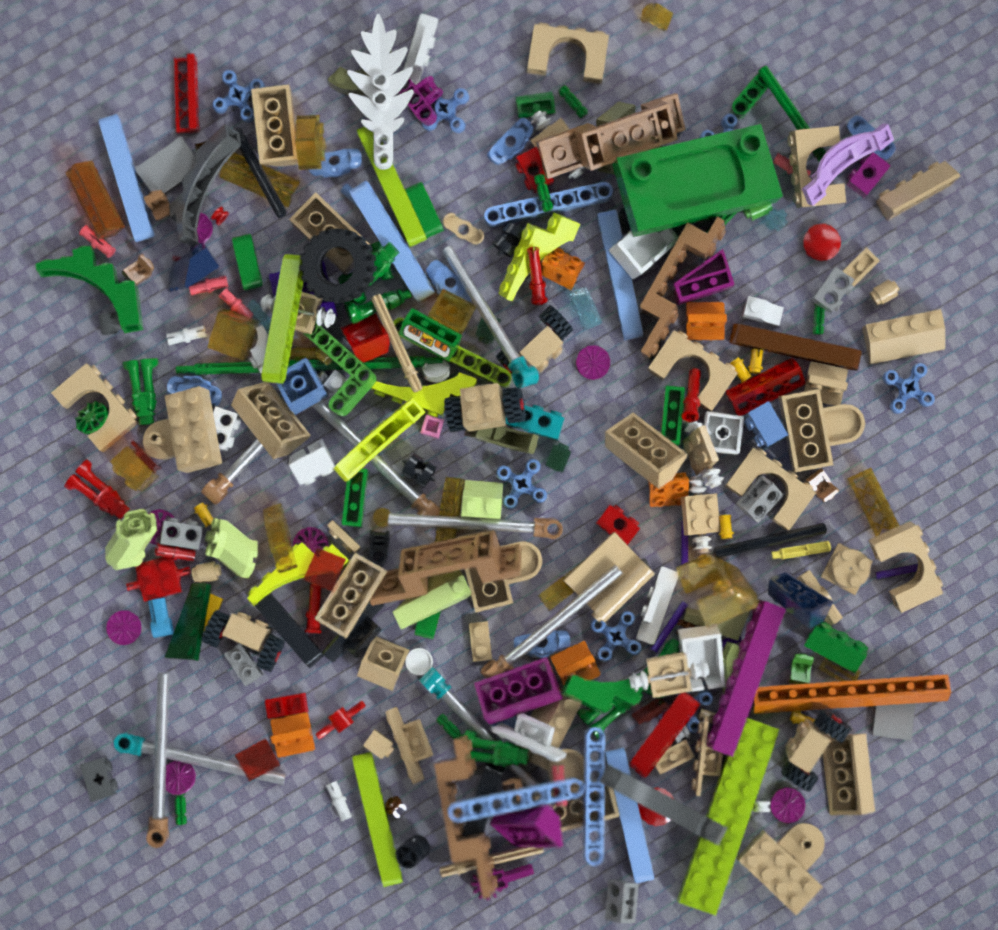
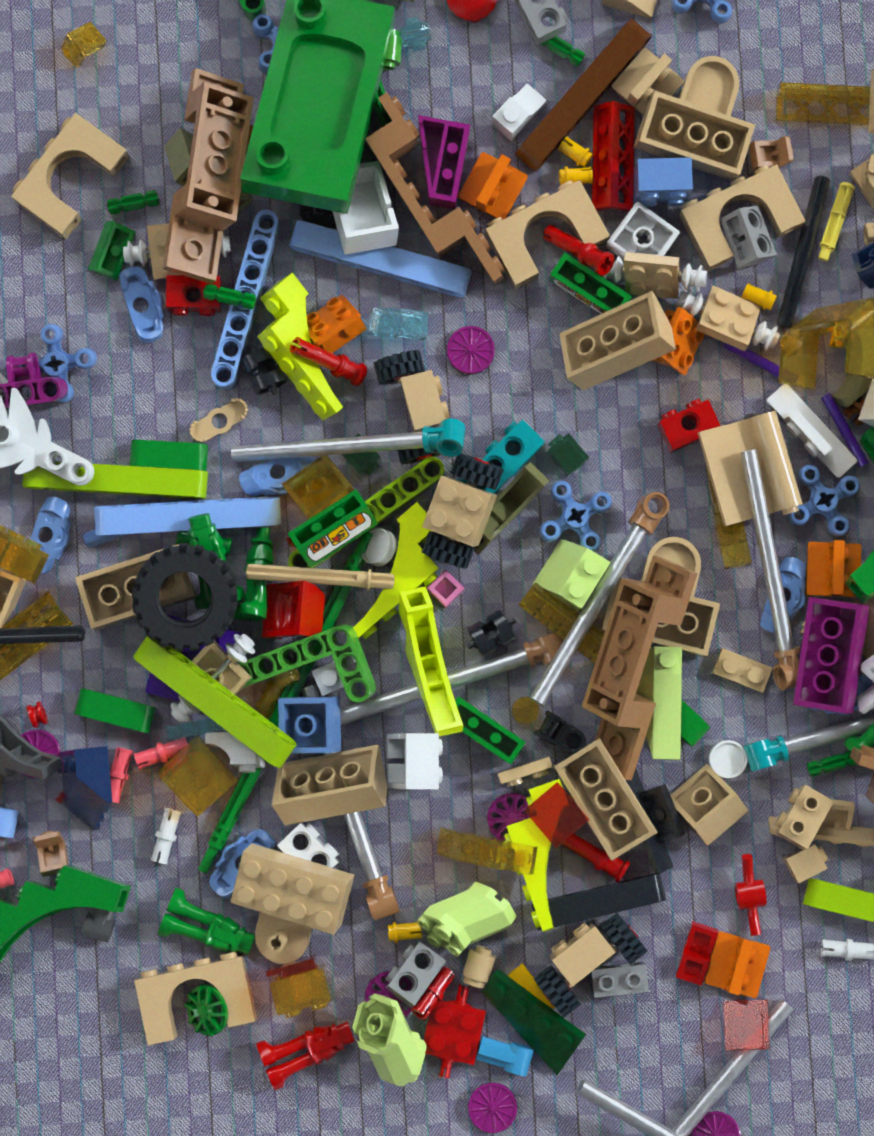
camera: 65 degrees left, 0 degrees up
(405, 726) = (803, 816): none -> tan brick

